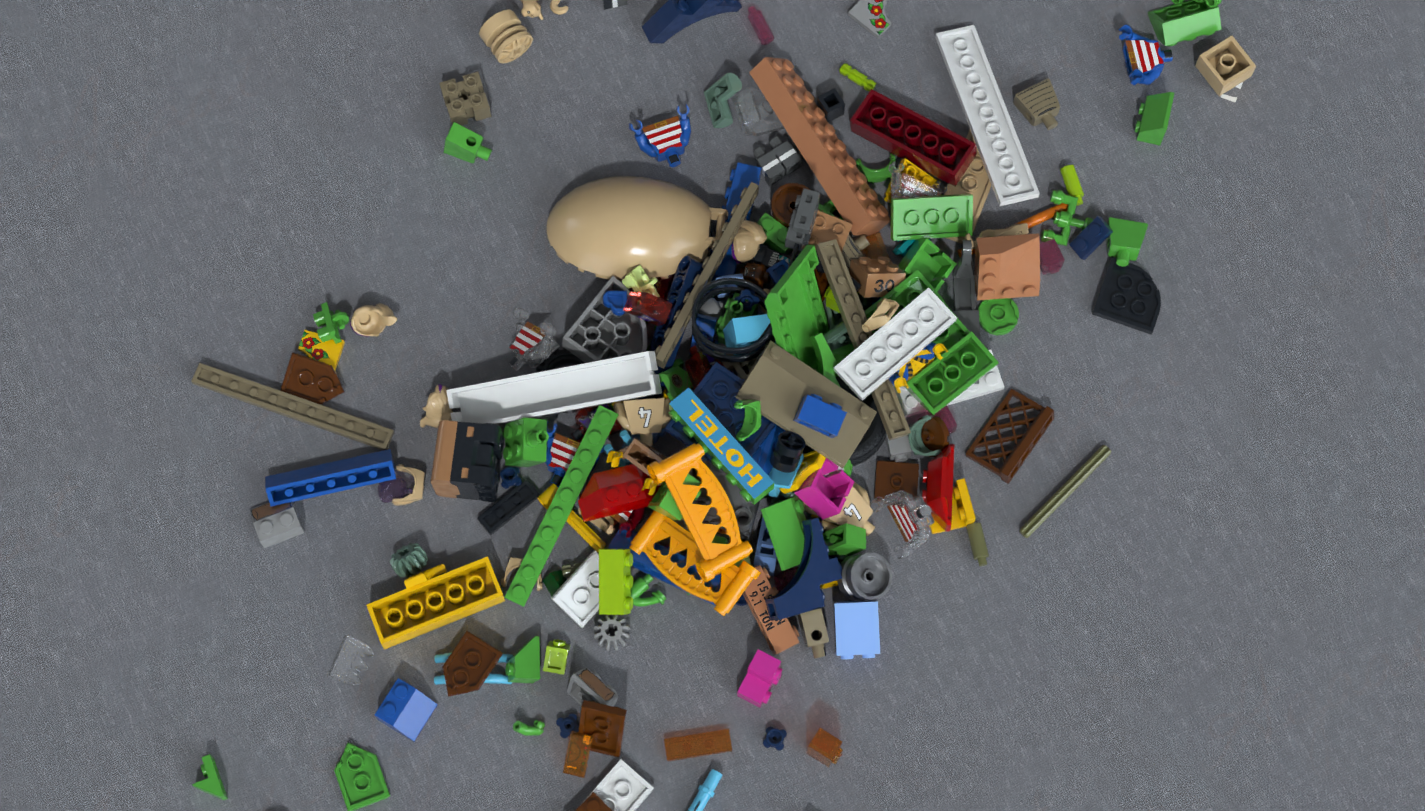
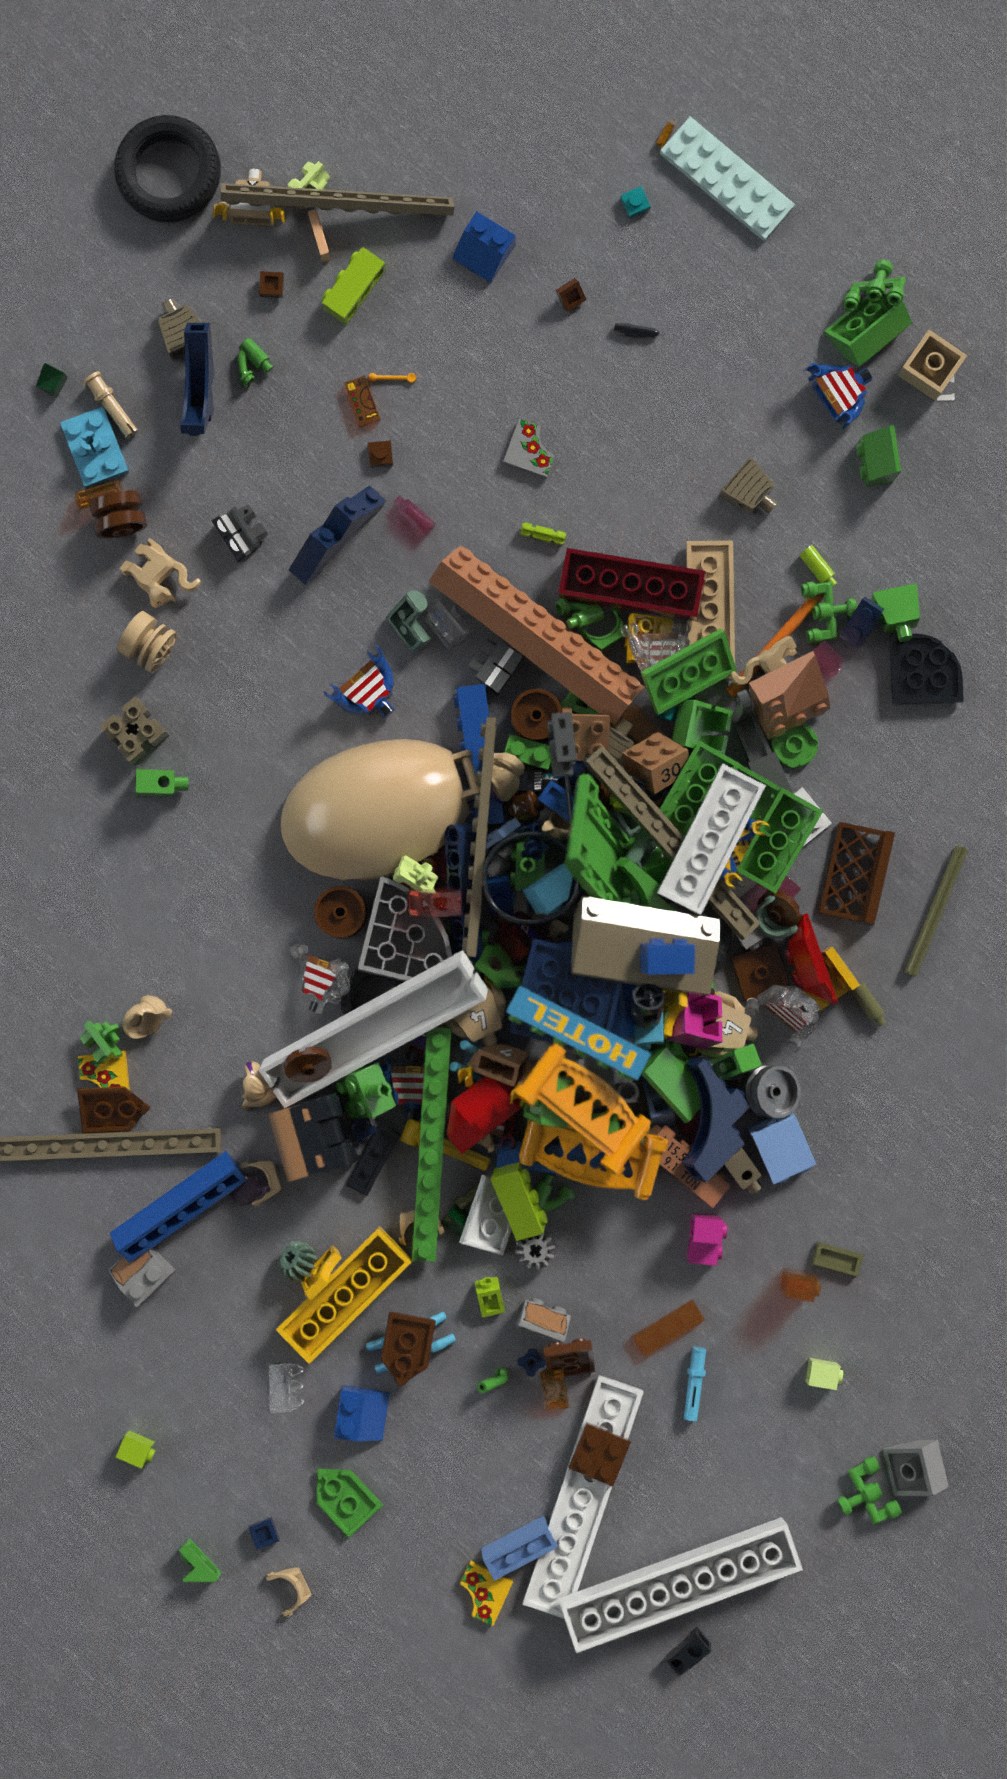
camera: 20 degrees left, 15 degrees up
(204, 662) = (136, 1449): none -> lime brick
(278, 777) = (264, 1533): none -> dark blue plate
(492, 393) = (307, 1065): none -> reddish brown plate
(525, 663) = (461, 1317): bright green slope -> none
(567, 297) = (338, 898): none -> reddish brown wheel
(616, 301) = (397, 905): blue tile -> none
(752, 412) = (598, 997): bright green helmet -> none
(769, 742) = (748, 1294): dark blue plate -> none
(831, 104) = (529, 580): black brick -> none
(862, 147) = (586, 615): none -> bright green plant
(867, 746) = (837, 1259): none -> olive tile
(879, 318) = (687, 800): tan helmet -> none
(987, 115) = (699, 525): white plate -> none

